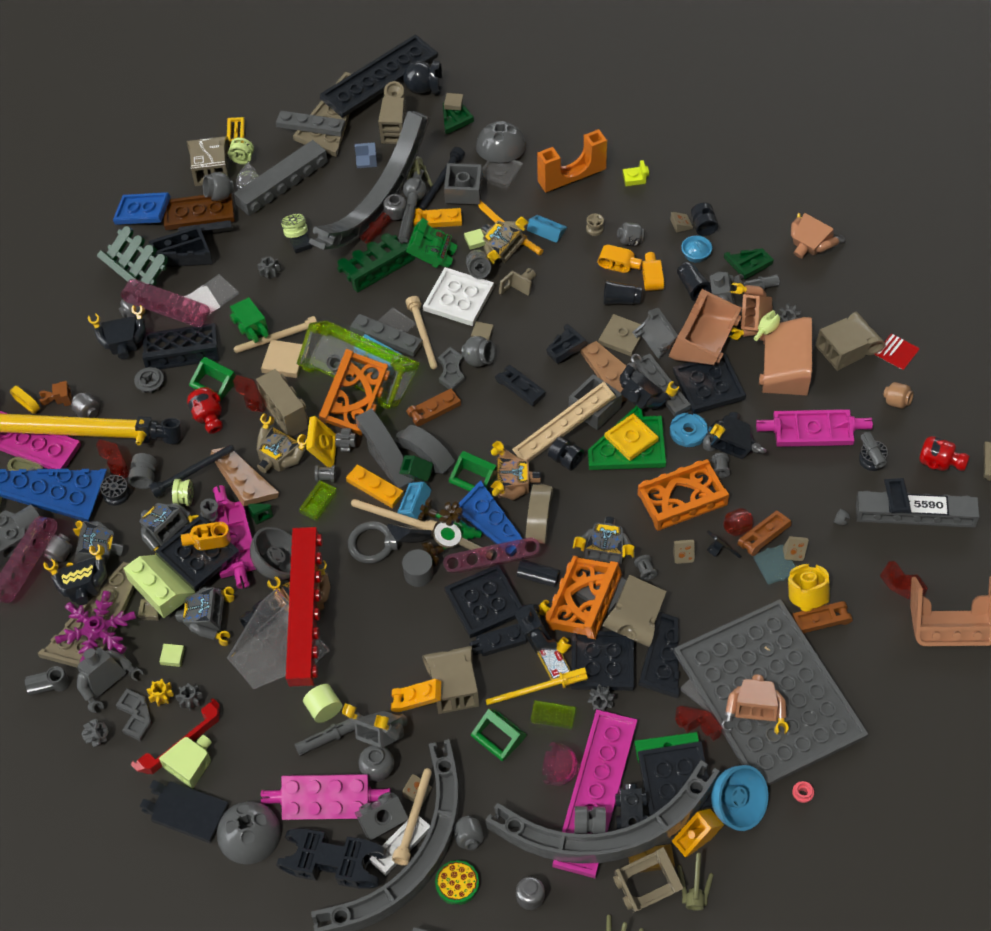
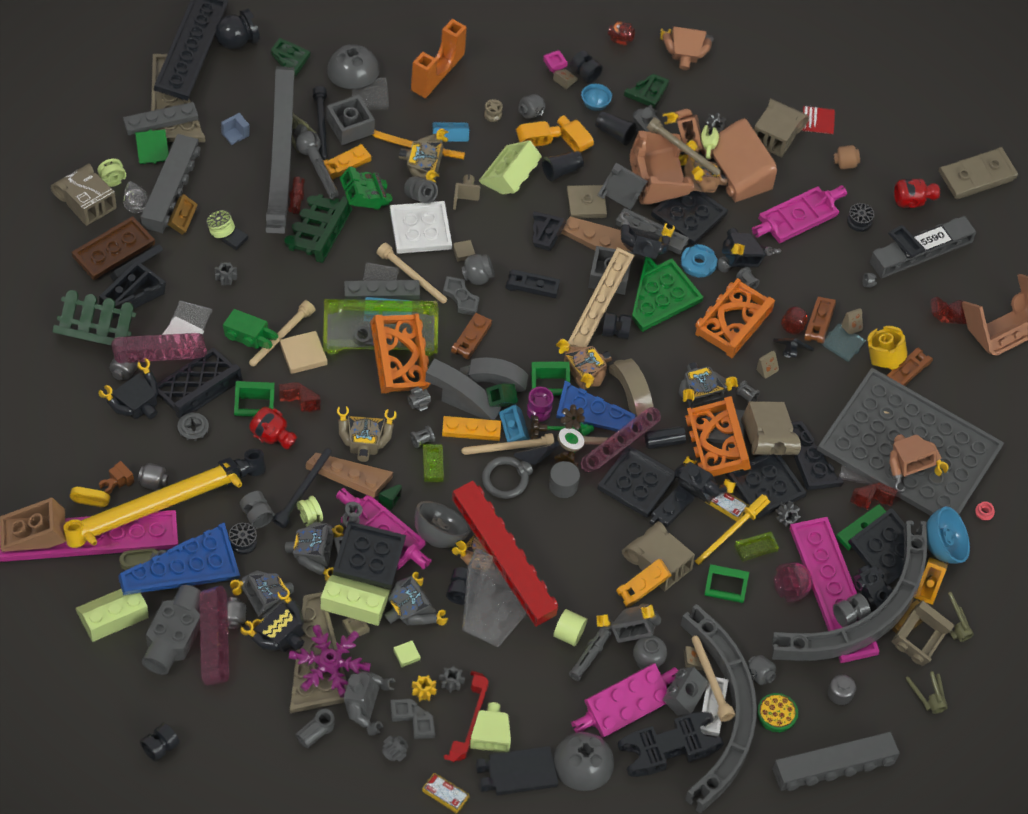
camera: 40 degrees left, 0 degrees up
(110, 796) = (445, 793): none -> tile
(115, 460) = (227, 512): clear red slope -> none
(141, 208) = (56, 268): blue tile -> none
(206, 536) = (373, 535): light orange piece -> none
(217, 186) = (123, 216): dark grey piece -> none
(242, 128) = (72, 148): yellow tile -> none
(271, 206) = (182, 214): none -> pearl gold plate
(282, 403) = (341, 389): dark tan brick -> none
(288, 142) = (152, 146): none -> green piece
(321, 441) = (402, 409): yellow tile -> none
(392, 113) = (239, 78): dark tan piece -> none
(394, 206) = (303, 167): flat silver head -> none
(444, 490) = (540, 403): none -> magenta wheel
(453, 101) = (282, 43): dark tan tile -> none
(474, 239) = (394, 168): yellowish green tile -> none
(574, 279) = (511, 167): none -> yellowish green slope
(631, 437) = (661, 287): yellow tile -> none
(636, 175) = (495, 49): neon yellow bracket -> none
(679, 203) = (555, 61): none -> dark pink tile
(719, 290) = (656, 126): none -> dark tan piece
(742, 352) = (702, 178): none -> medium nougat torso
(758, 202) = (621, 32): none -> clear red head
(764, 282) = (672, 105): dark grey axle -> none
(873, 450) = (862, 211): dark grey axle -> none

